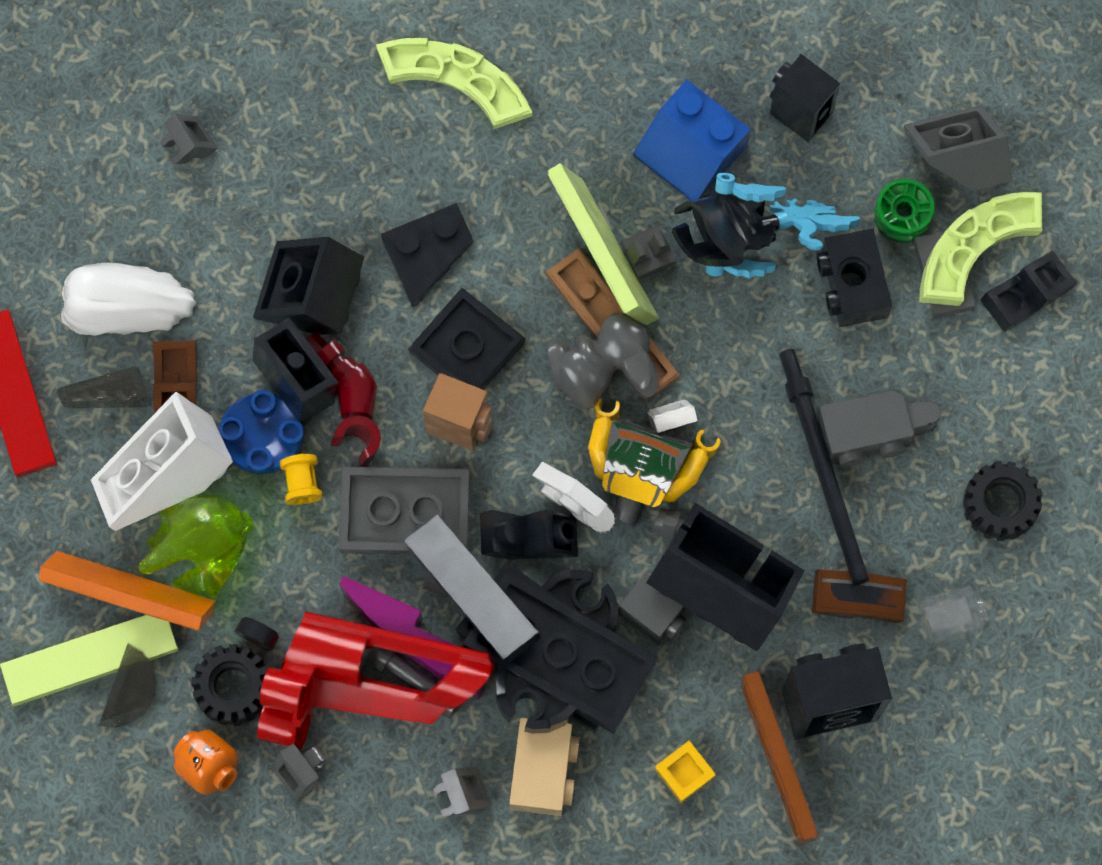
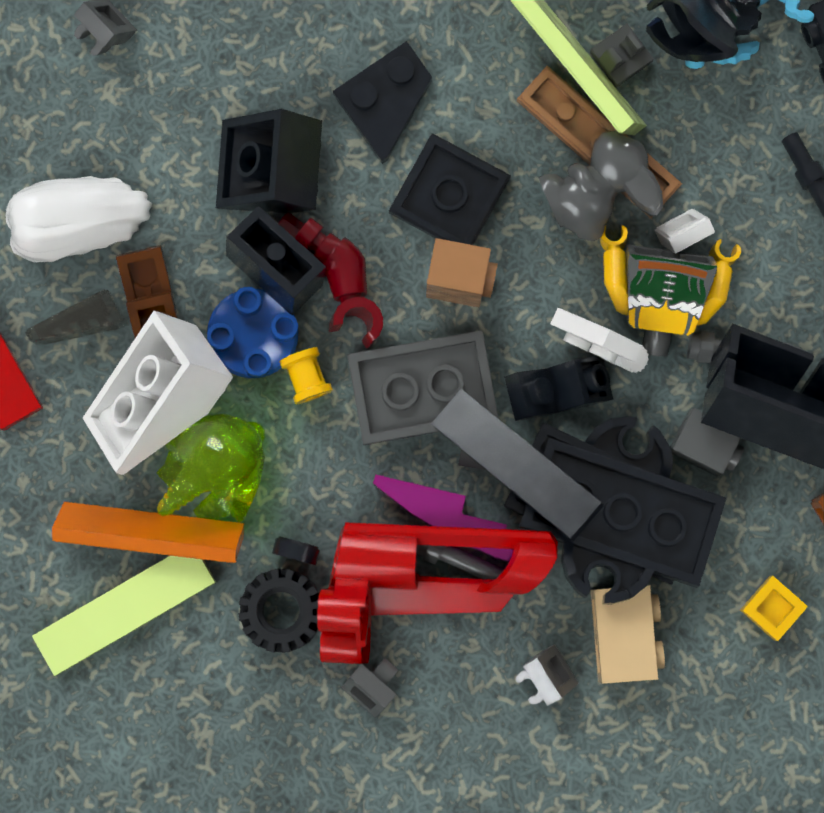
camera: 10 degrees left, 10 degrees up
(131, 690) = (177, 635): clear smoke tile -> none
(205, 762) = (272, 698): orange head -> none

